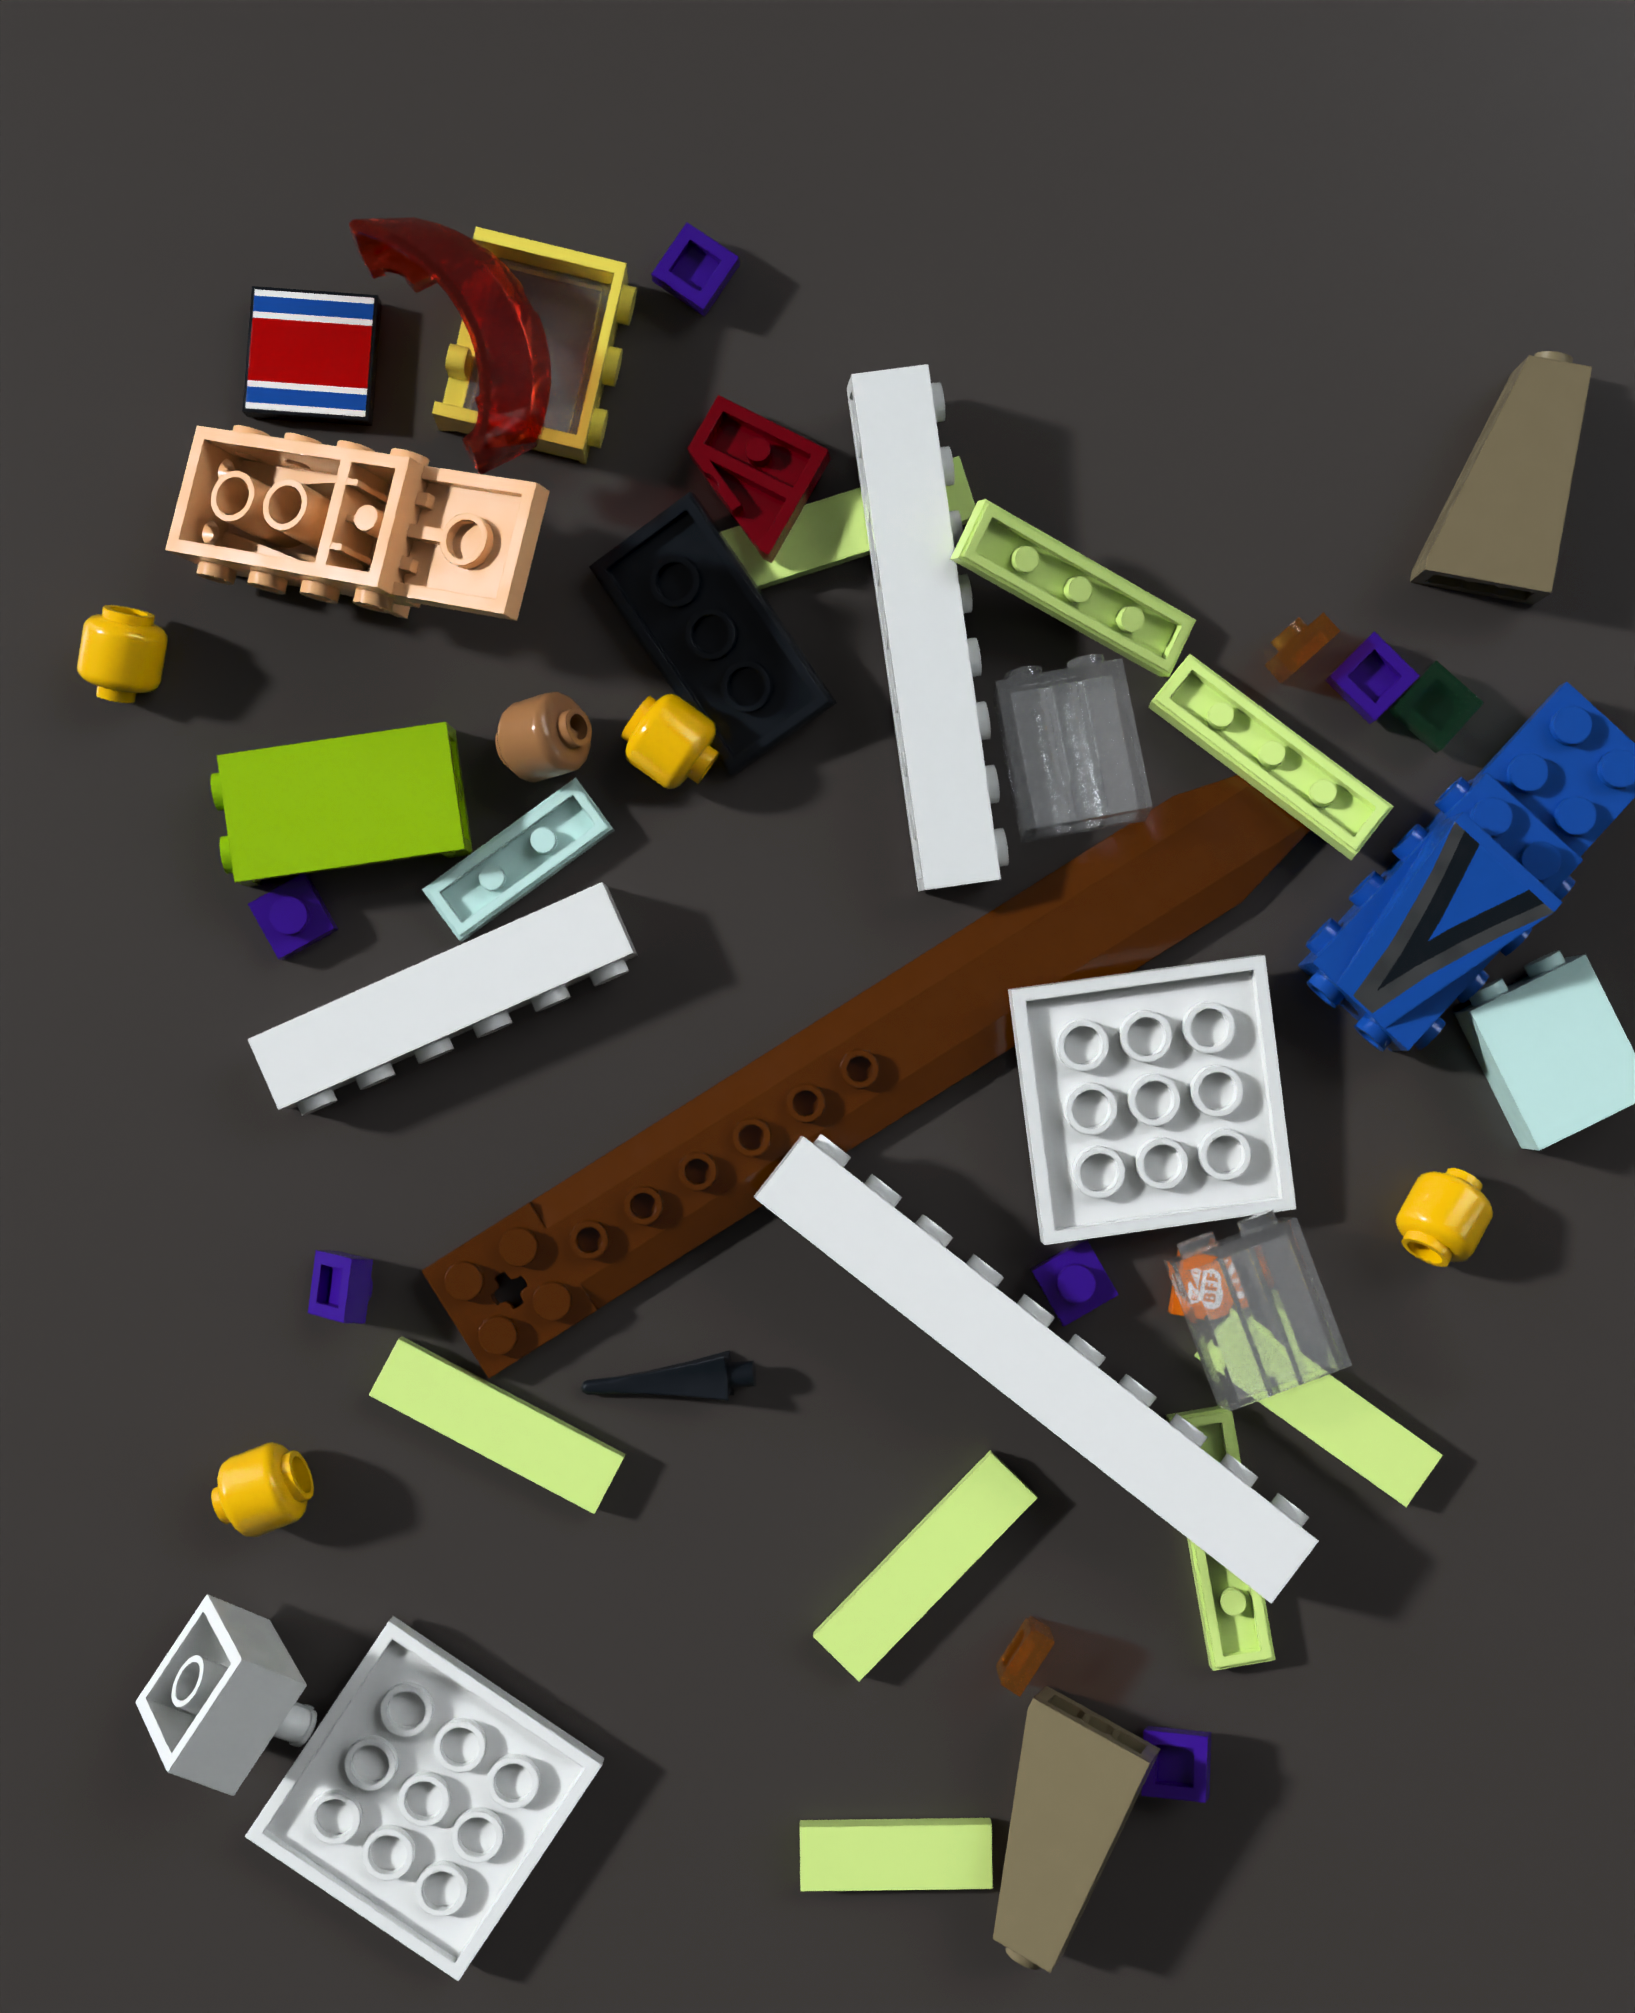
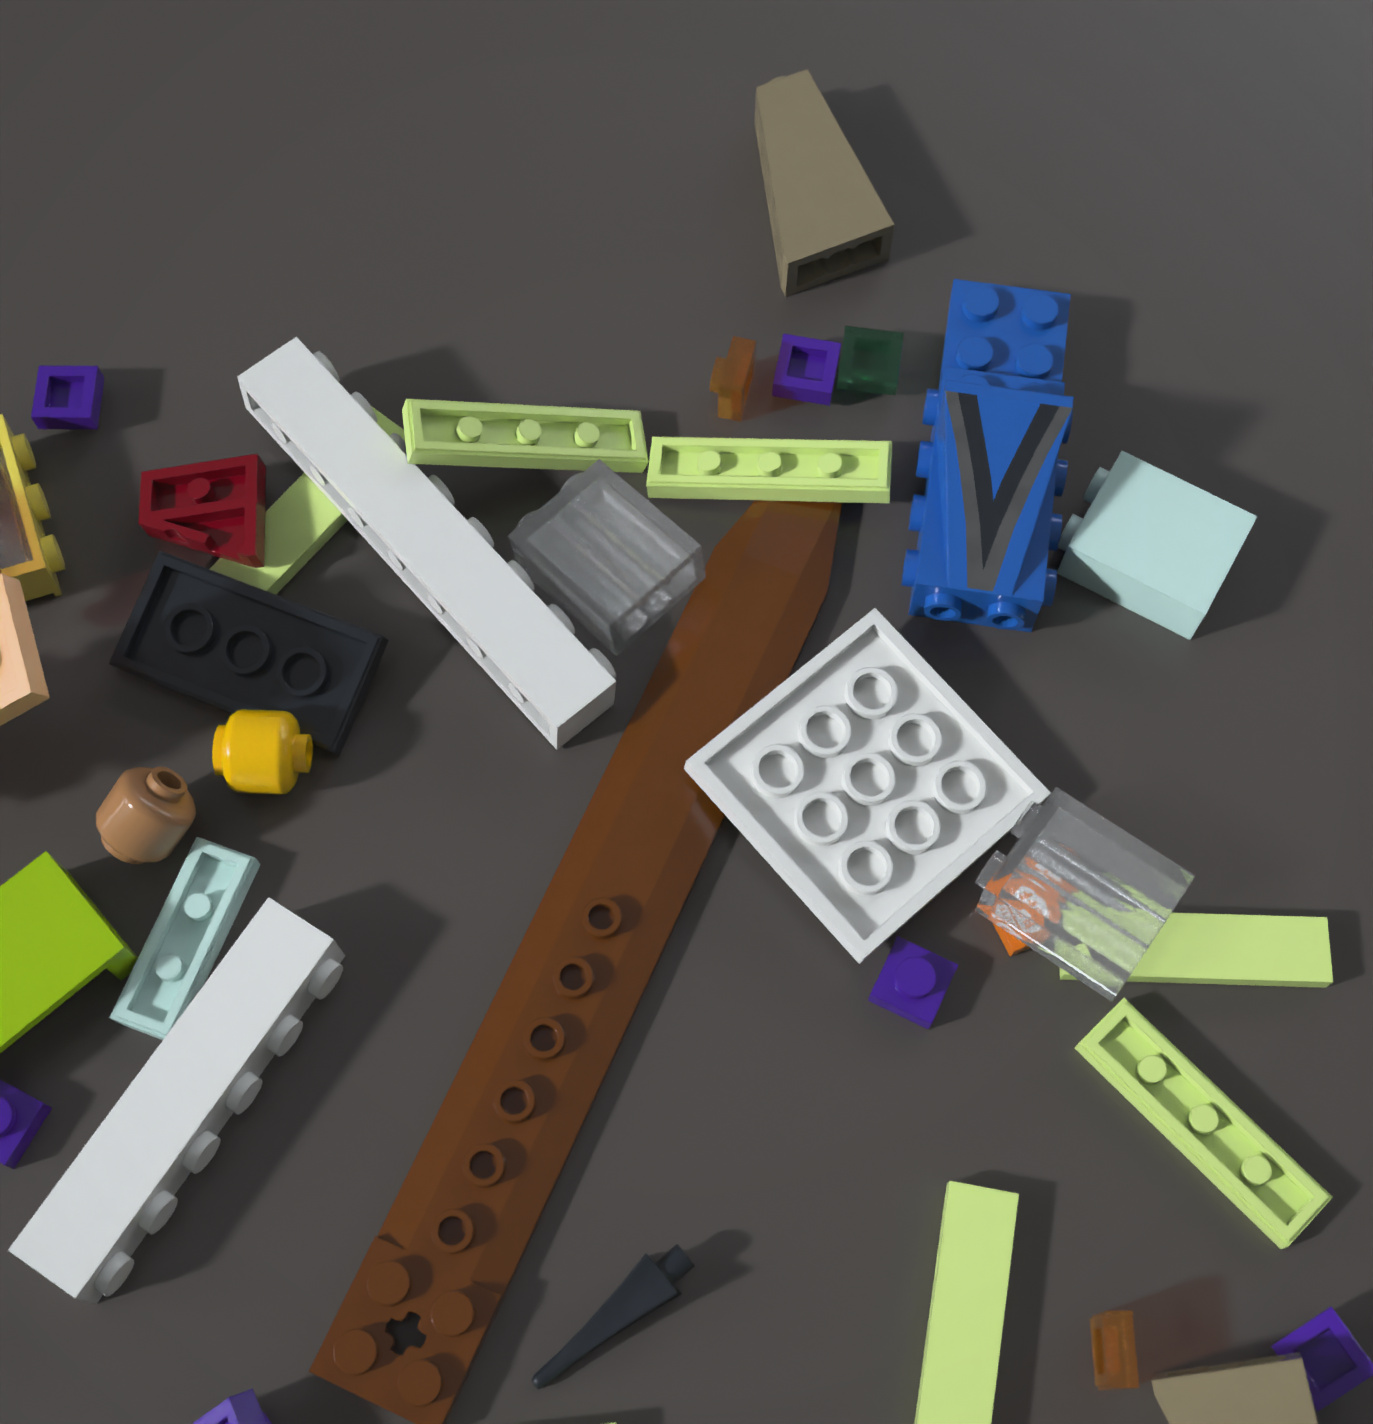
camera: 35 degrees left, 20 degrees down
(1036, 1367) = (934, 1064): white brick -> none
(1444, 1217) = (1173, 722): yellow head -> none

